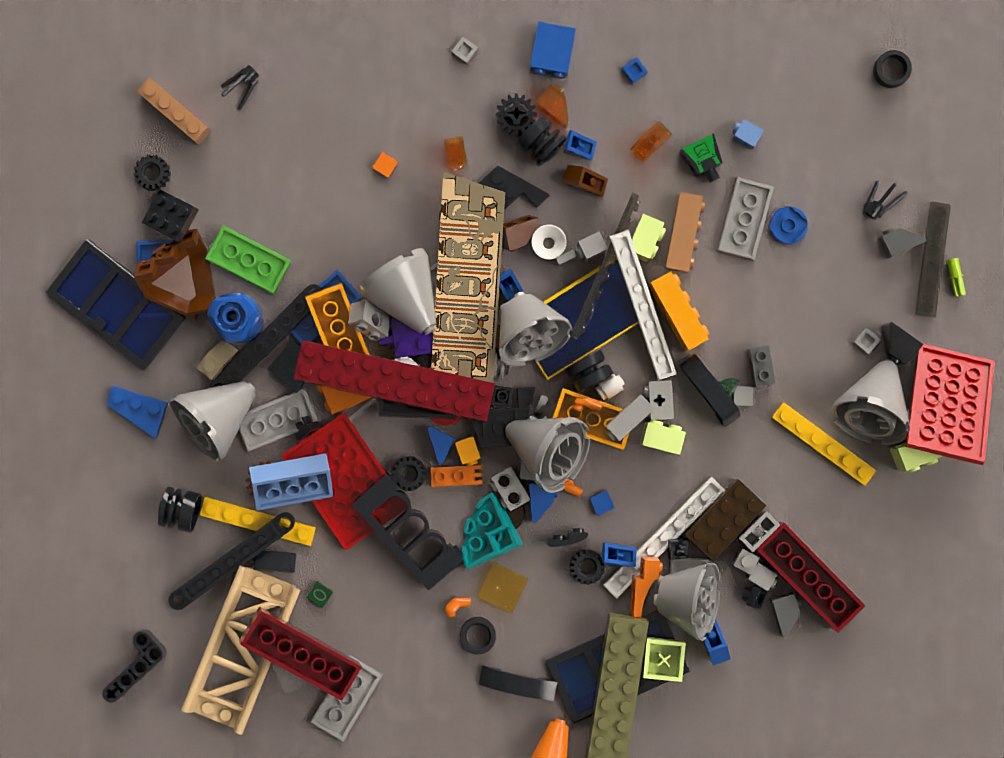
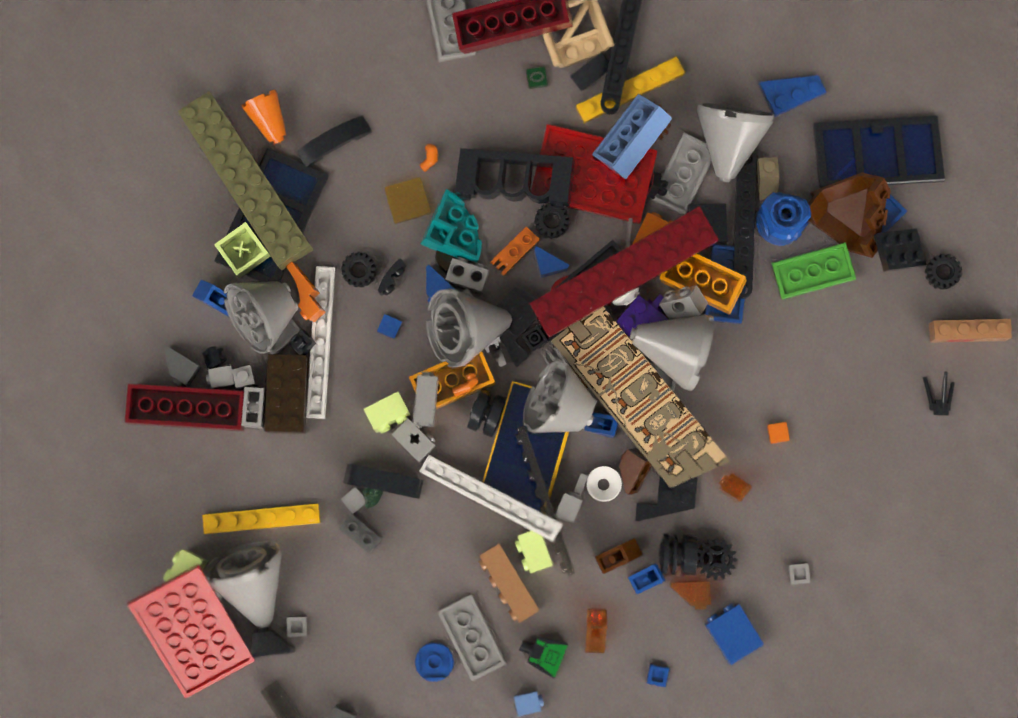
camera: 135 degrees right, 5 degrees down
(175, 508) = (693, 46): black wheel -> none
(463, 637) = (394, 134): black tyre -> none
(468, 451) = (523, 275): light orange brick -> none
(572, 489) = (420, 317): orange arm -> none
(610, 387) = (460, 417): white brick -> none
(618, 555) = (342, 297): blue slope -> none
(678, 312) = (459, 517): light orange brick -> none

